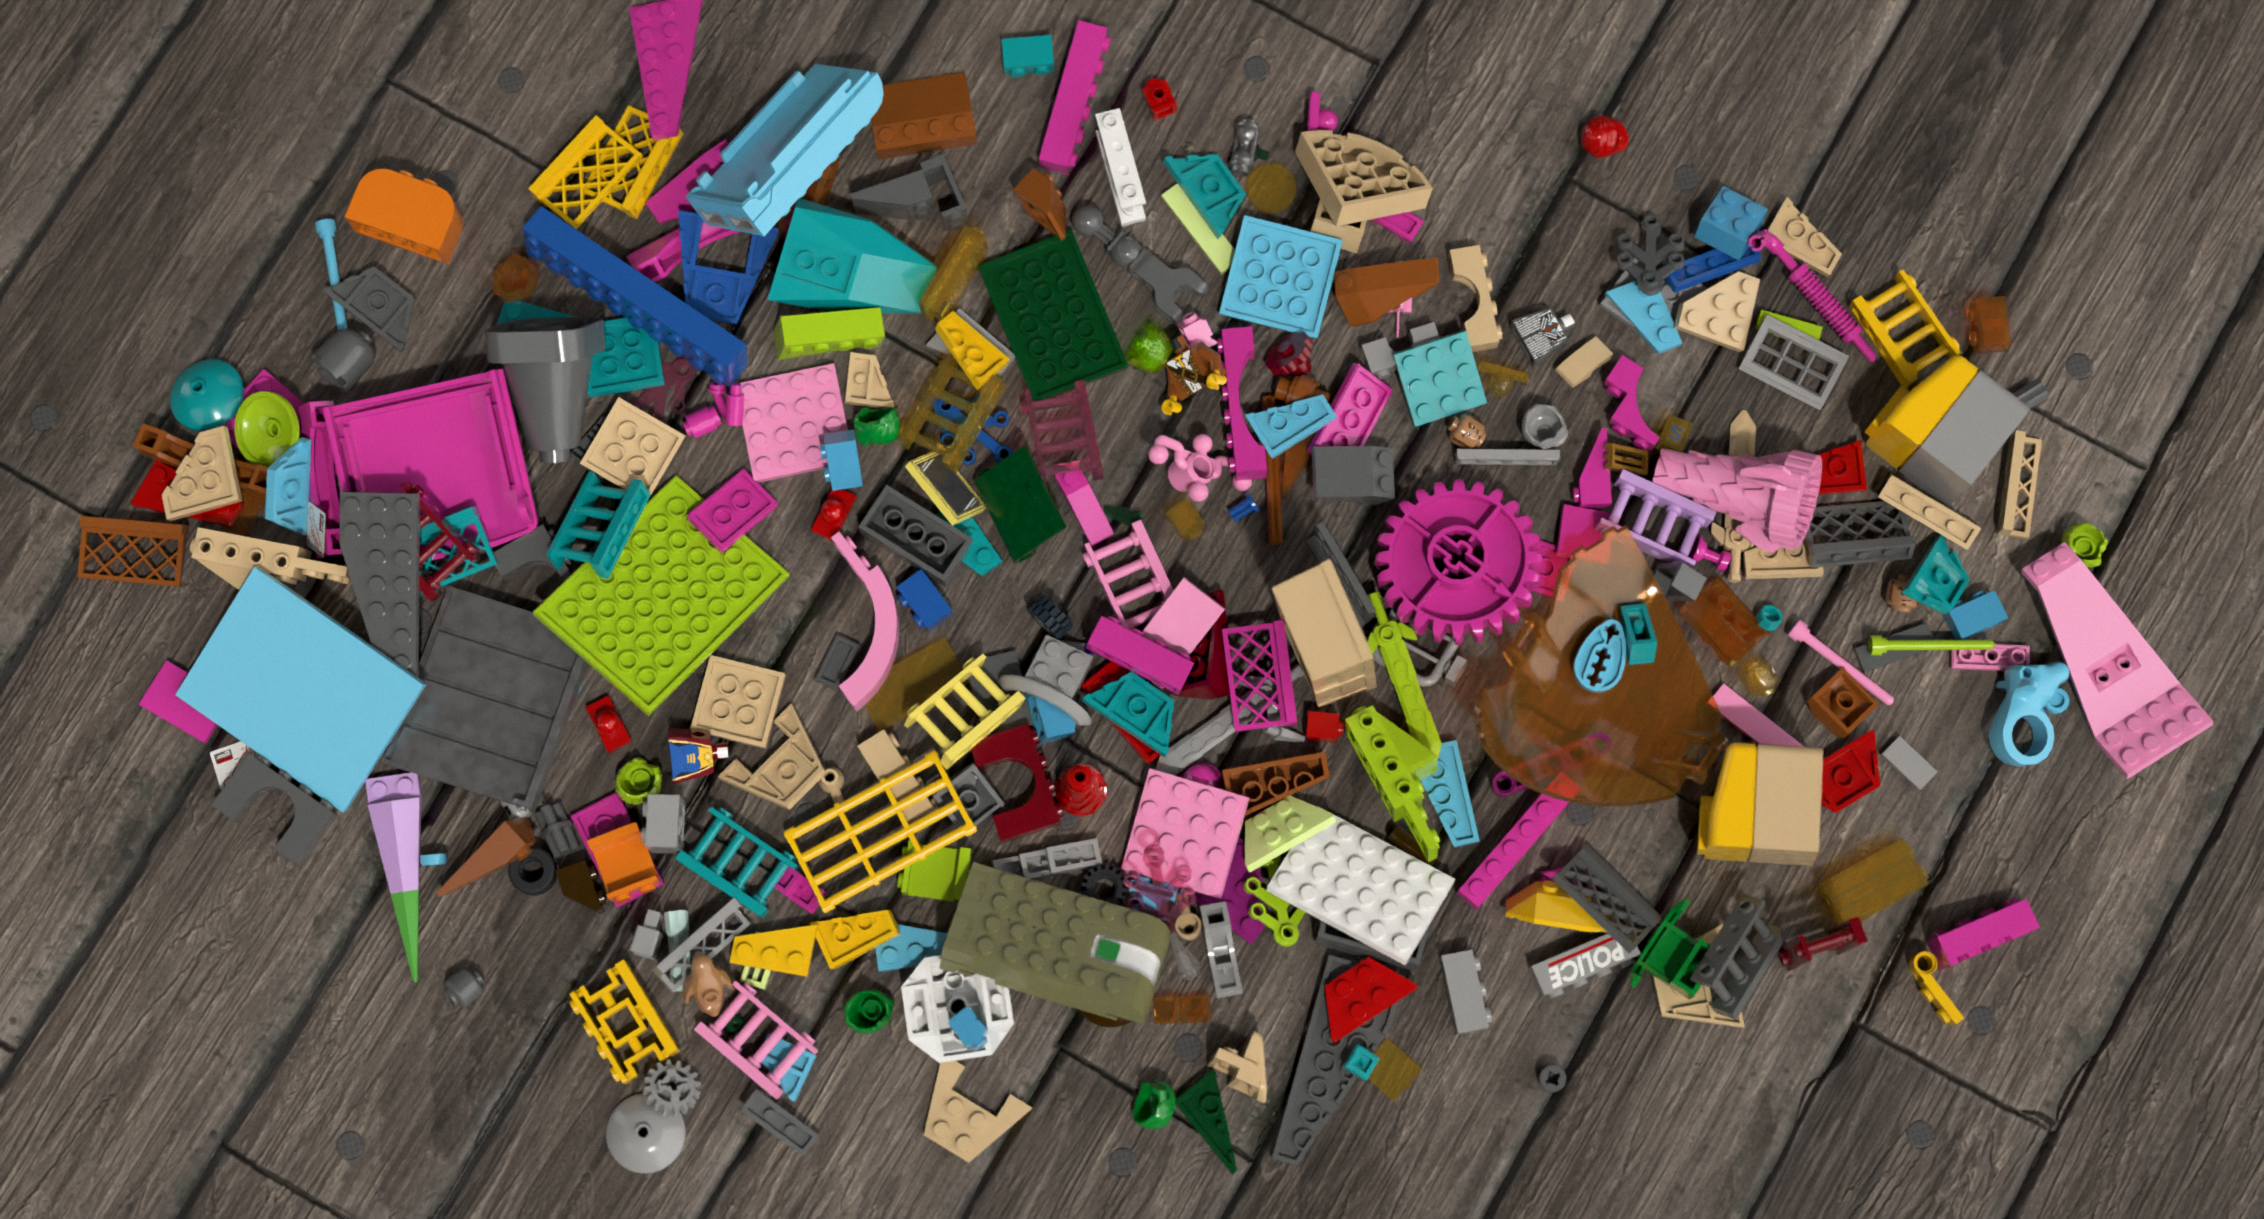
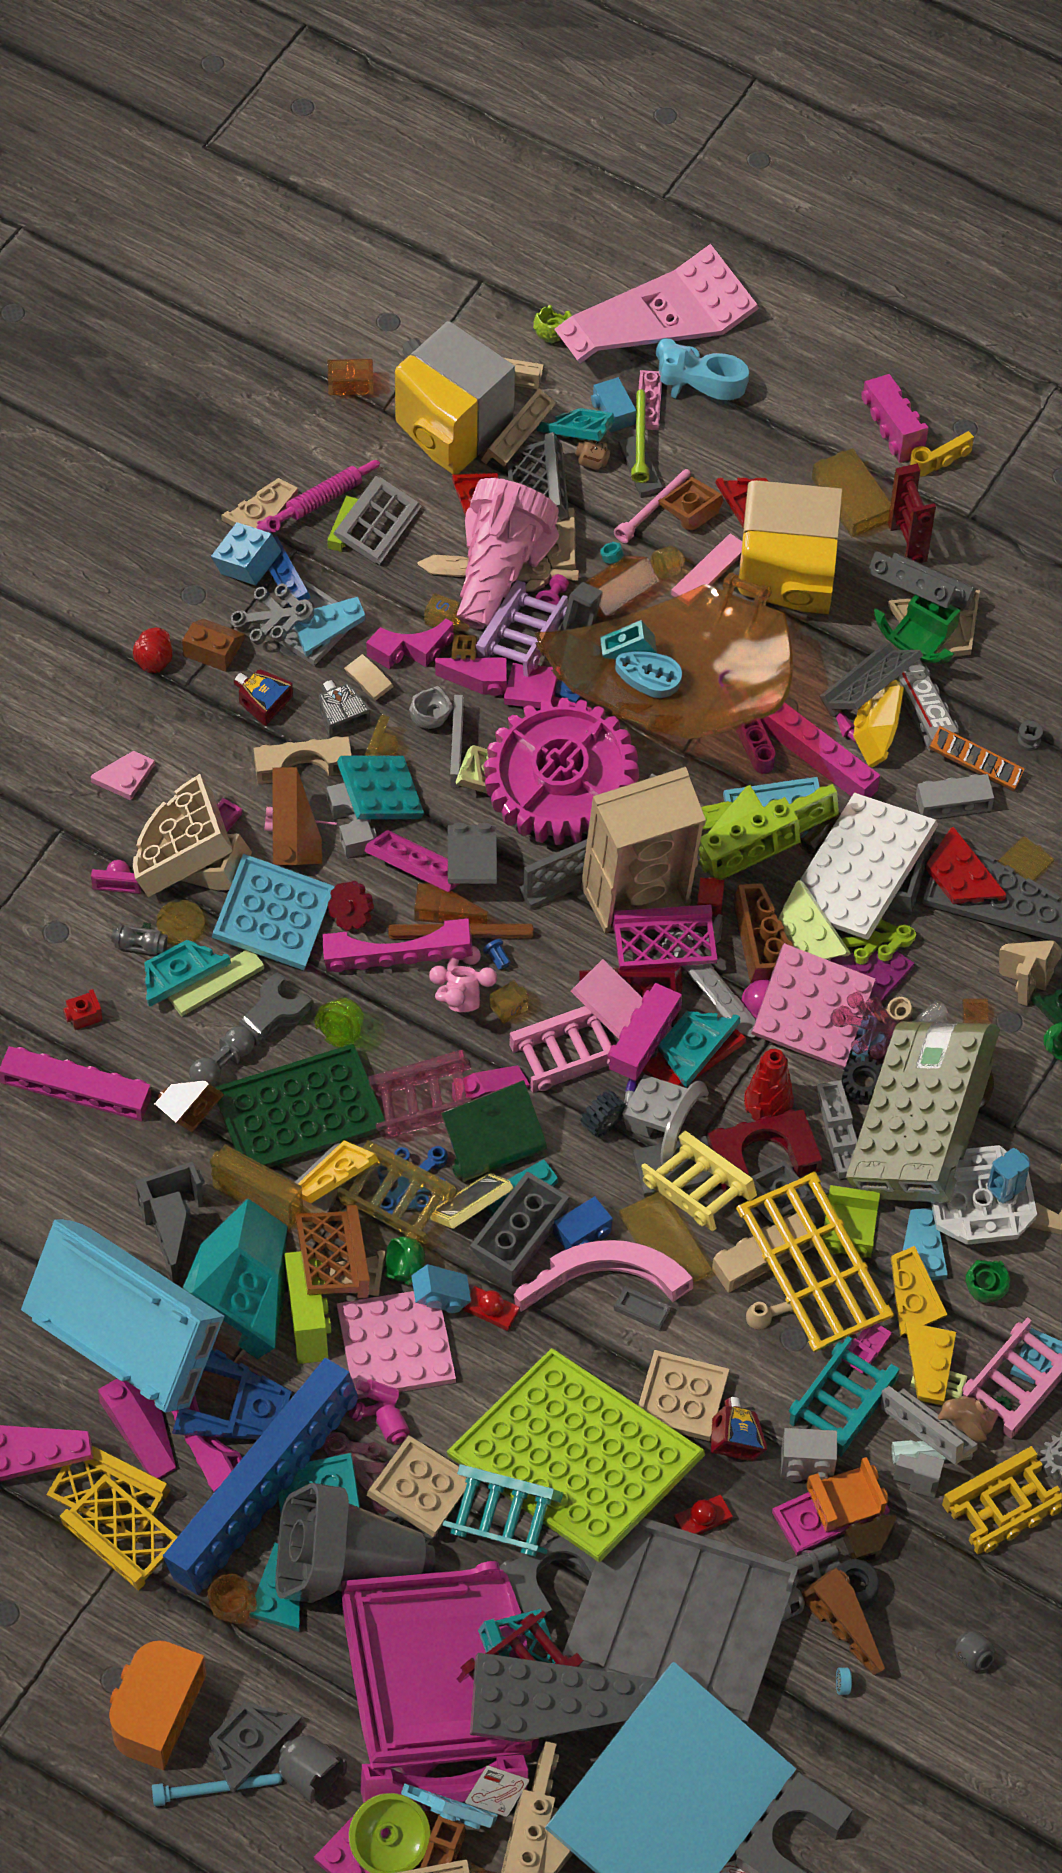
camera: 90 degrees left, 20 degrees down
(396, 820) = (804, 1718): lavender plate -> none
(638, 780) = (764, 1483): lime hair -> none
(732, 511) = (487, 1396): dark pink tile -> none
(787, 772) = (754, 1346): tan wing -> none
(887, 373) = (353, 1246): none -> dark orange fence
(924, 116) = (82, 1197): dark orange slope -> none
(1028, 56) = (28, 1122): teal brick -> none
(1048, 720) = (704, 1117): dark azure brick -> none
(1120, 167) = (160, 1047): white fence -> none
(1122, 514) = (501, 1054): clear green bar -> none
(1191, 372) = (366, 981): torso -> none
(1195, 329) = (322, 981): bright pink window -> none
(1220, 949) = (922, 986): light grey arch -> none
(1290, 424) = (422, 899): medium azure wing -> none
(1298, 389) = (391, 898): dark orange piece -> none
(1361, 1062) = (1023, 874): teal tile -> none
(1449, 121) = (124, 775): none -> bright pink wing
(1466, 431) = (432, 769): medium nougat head -> none
(1469, 472) = (472, 769): none -> yellowish green wing
(1512, 1016) = (976, 758): none -> tile
(1554, 253) = (263, 694): none -> torso
(1621, 199) = (212, 643): none -> dark orange slope
(1721, 311) = (327, 569): tan plate -> none
(1892, 351) = (367, 451): yellow fence -> none
(1909, 763) = (743, 462): light grey tile -> none

